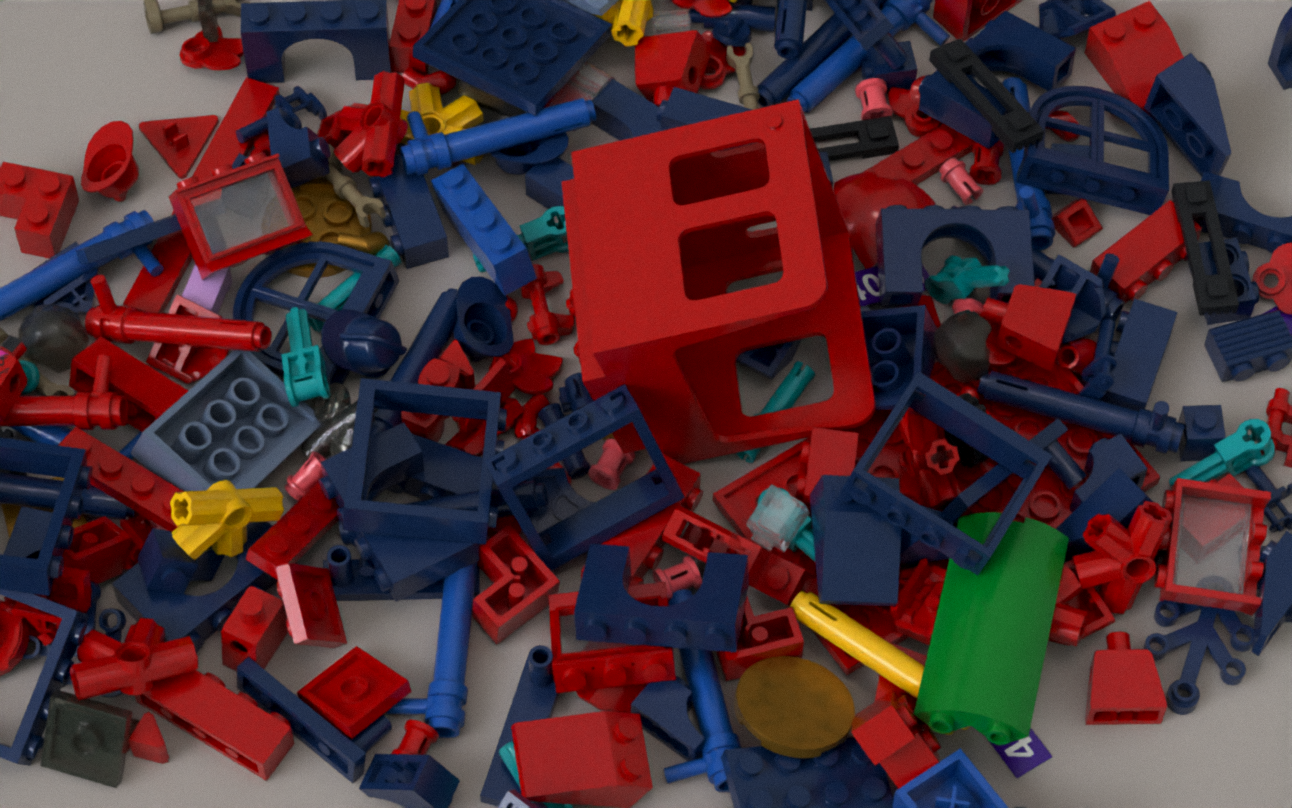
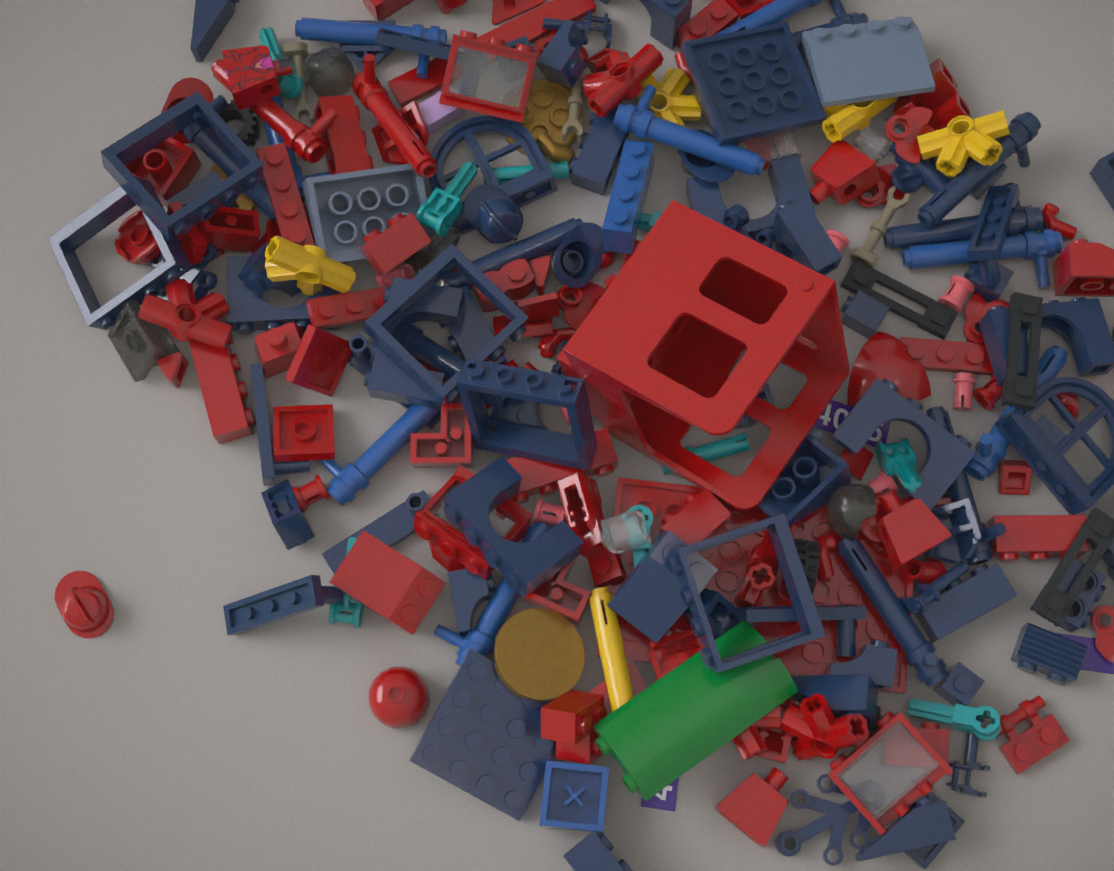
camera: 45 degrees right, 15 degrees up
(287, 437) = (395, 243): none -> red brick

